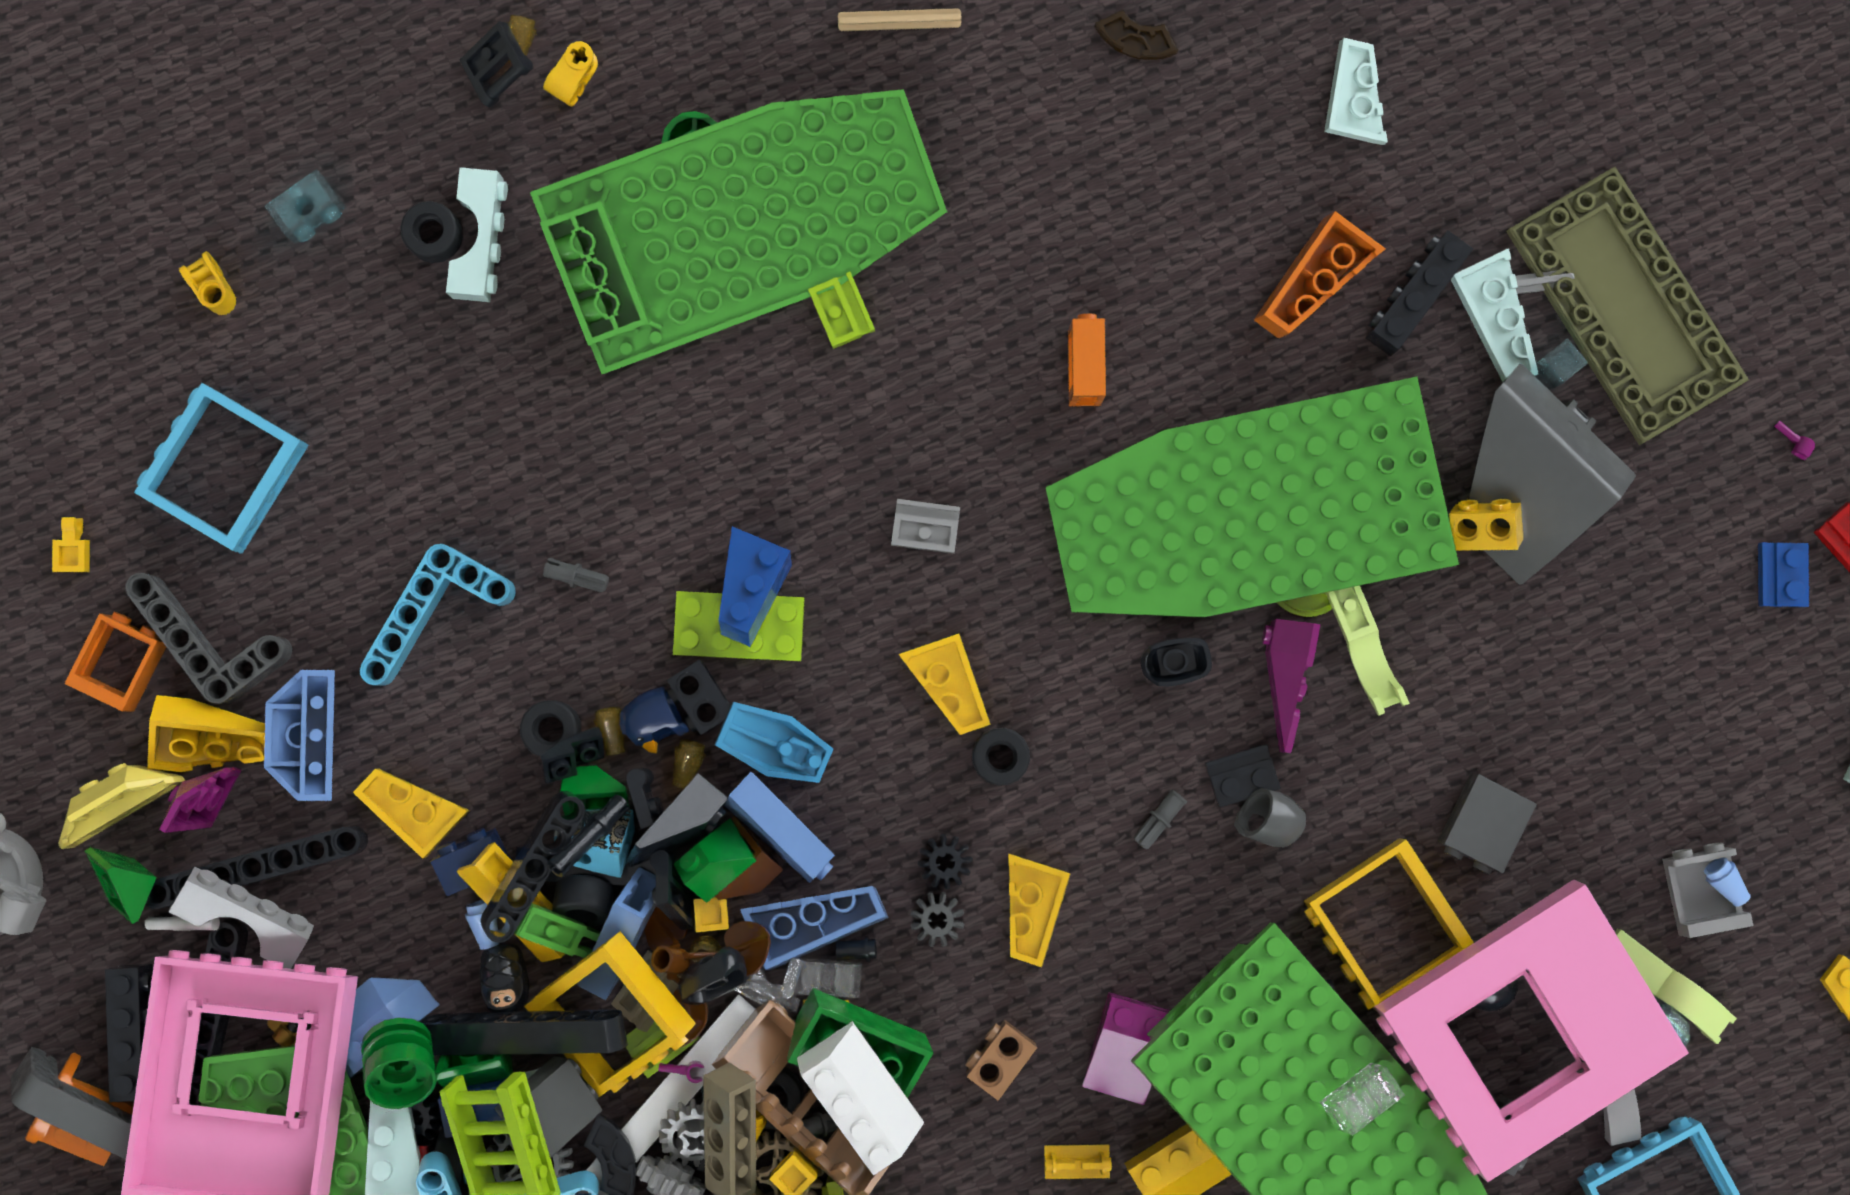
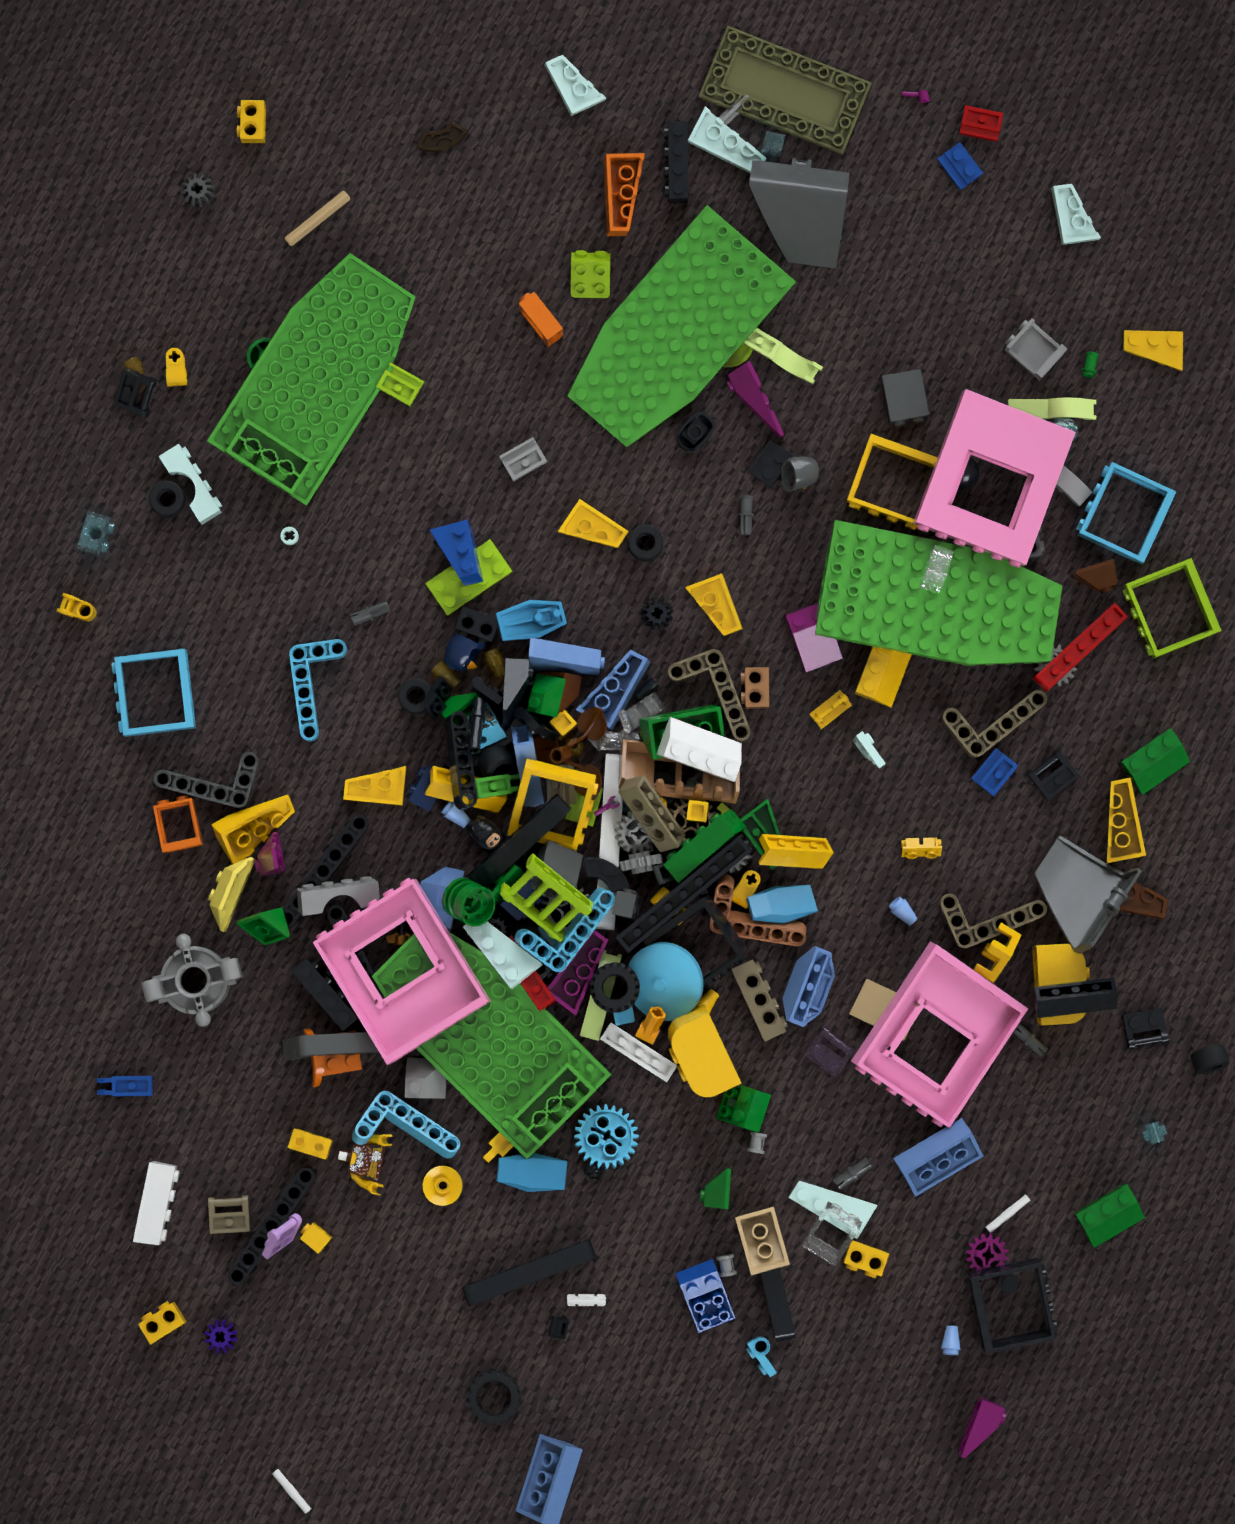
camera: 35 degrees left, 0 degrees up
(71, 552) = (112, 789): yellow plate -> none
(178, 924) = (309, 925): white piece -> none
(301, 735) = (298, 787): medium blue wedge -> none
(545, 404) = (283, 536): none -> light aqua bush
(713, 977) = (587, 748): black piece -> none
(937, 908) = (679, 649): dark grey gear -> none
(953, 1023) = (719, 687): none -> dark tan beam
(1194, 353) = (590, 274): none -> lime bracket
(1487, 534) = (798, 254): yellow brick -> none
(1727, 881) = (1039, 336): light blue cone -> none
(1763, 966) = (1090, 365): none -> green pin

